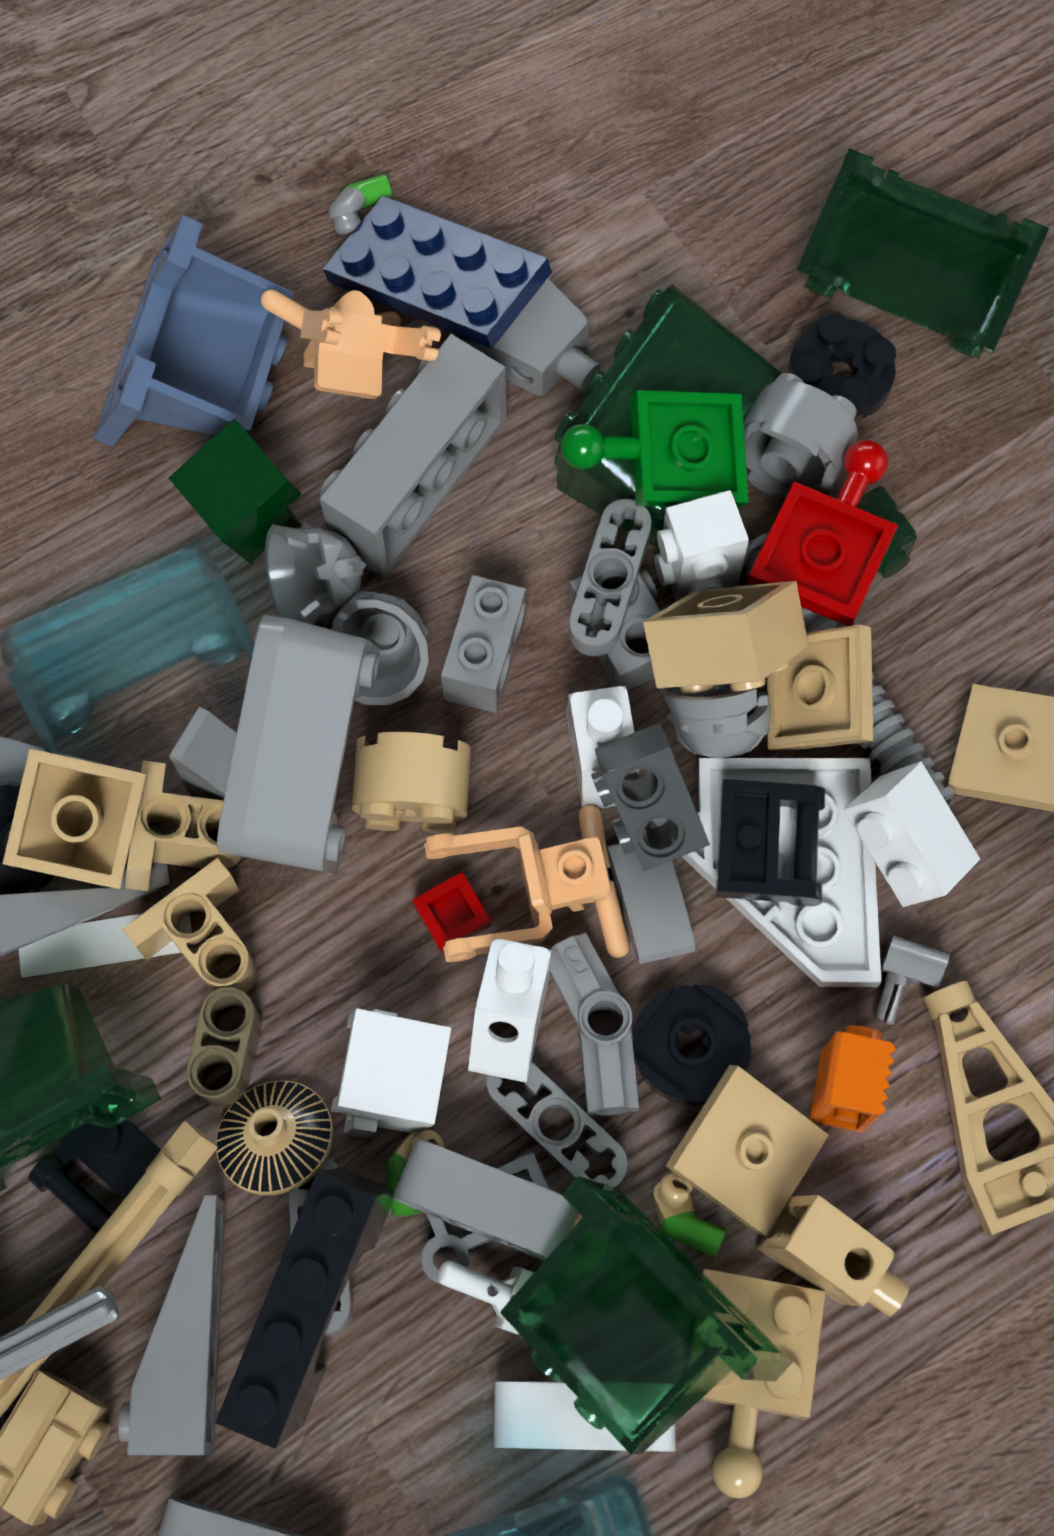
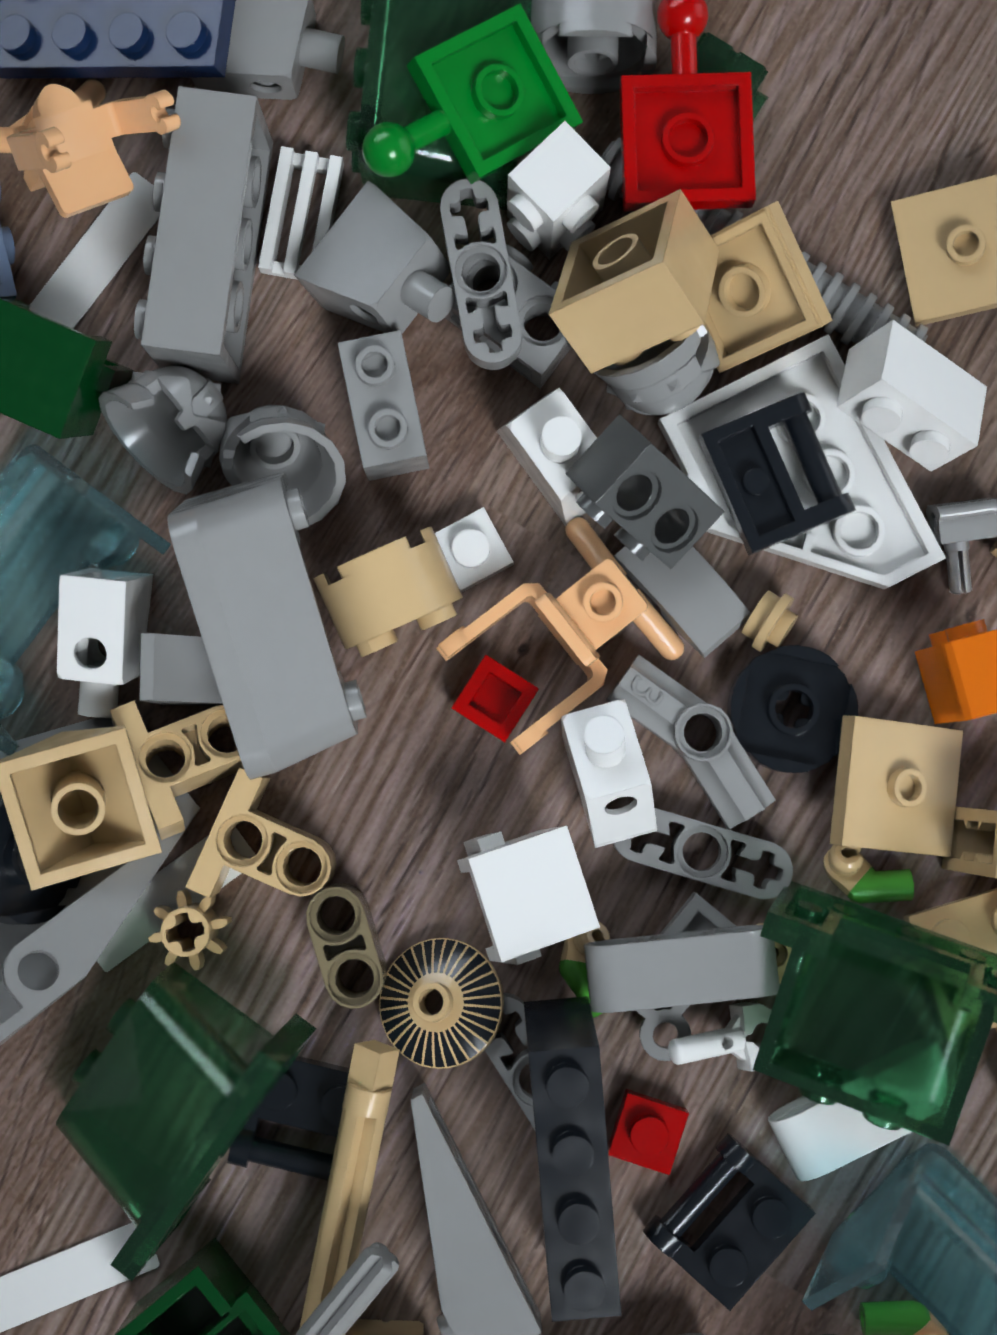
camera: 30 degrees left, 15 degrees up
(101, 956) = (183, 945): none -> tan gear
(166, 700) = (106, 609): none -> white torso
(327, 437) = (98, 256): none -> white sticker
(387, 1340) = (647, 1131): none -> red plate
(425, 1476) = (746, 1232): none -> black plate
(495, 790) = (473, 549): none -> white plate
(524, 446) = (310, 164): none -> white tile
(534, 538) = (378, 266): none -> light grey torso
(709, 961) = (770, 621): none -> tan plate

